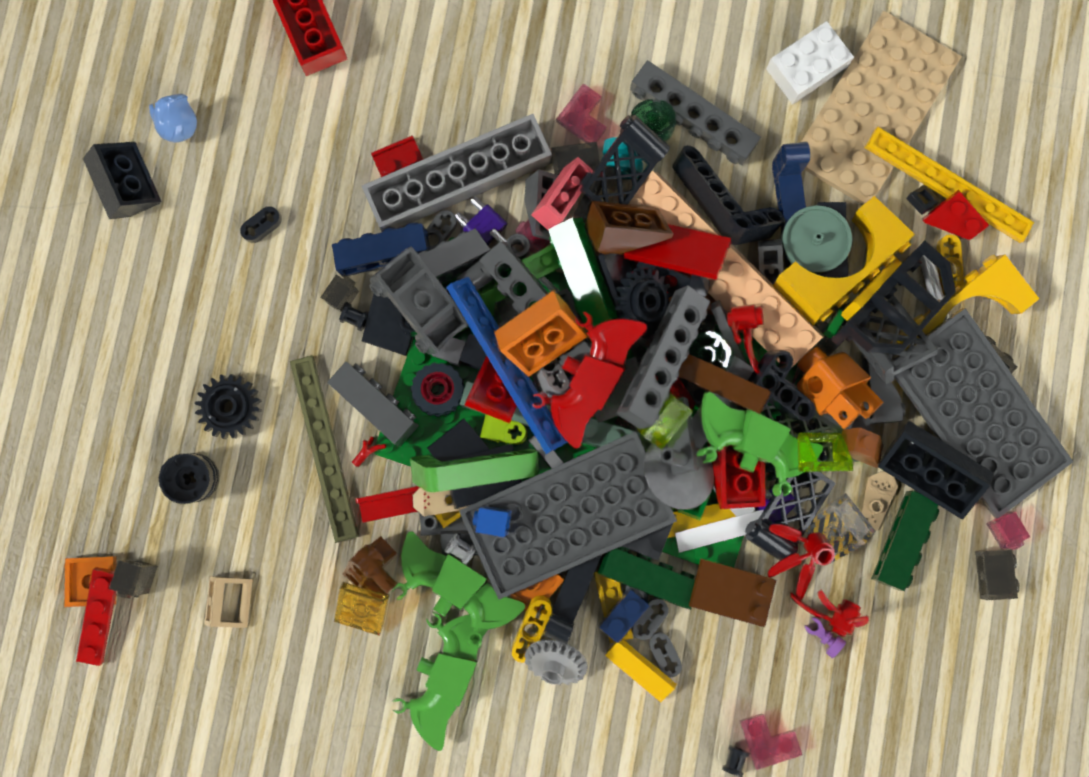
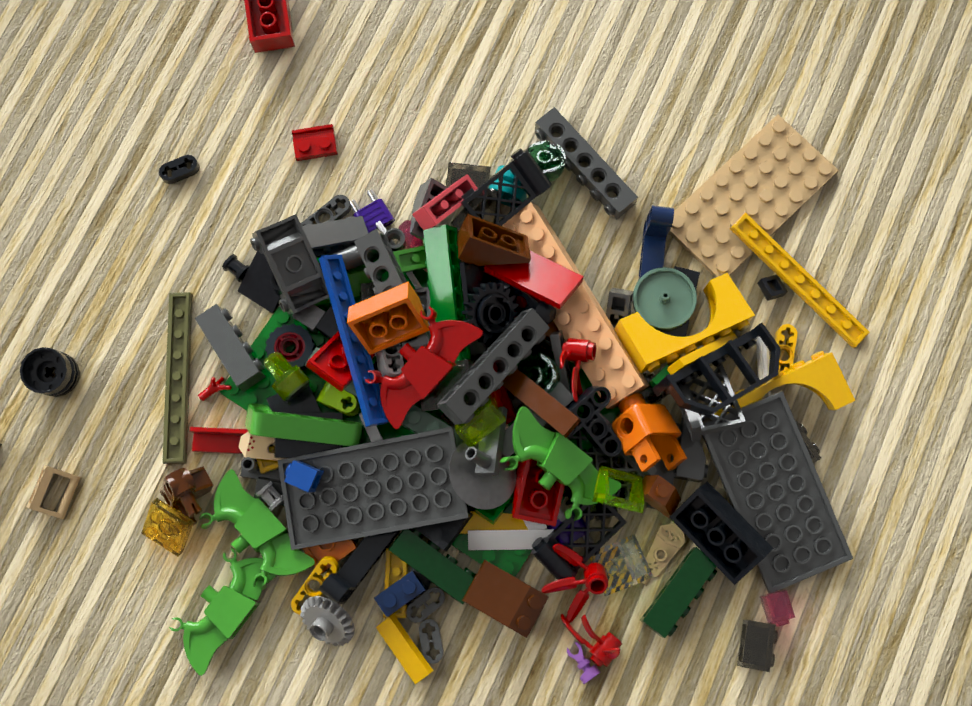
camera: 15 degrees right, 5 degrees down
(121, 179) = (70, 101): black slope -> none
(173, 118) = (129, 60): medium blue hair -> none
(213, 406) = (94, 309): black gear -> none
(340, 292) = (229, 243): clear smoke brick -> none
(377, 250) = (255, 214): dark blue brick -> none
(449, 423) = (289, 379): none -> clear neon green piece
(458, 173) = (360, 166): light grey brick -> none
(577, 117) = (480, 142): clear pink plate -> none
(720, 204) = (585, 247): black beam -> none
(809, 62) = (699, 143): white brick -> none
(957, 217) = (799, 310): red wing -> none

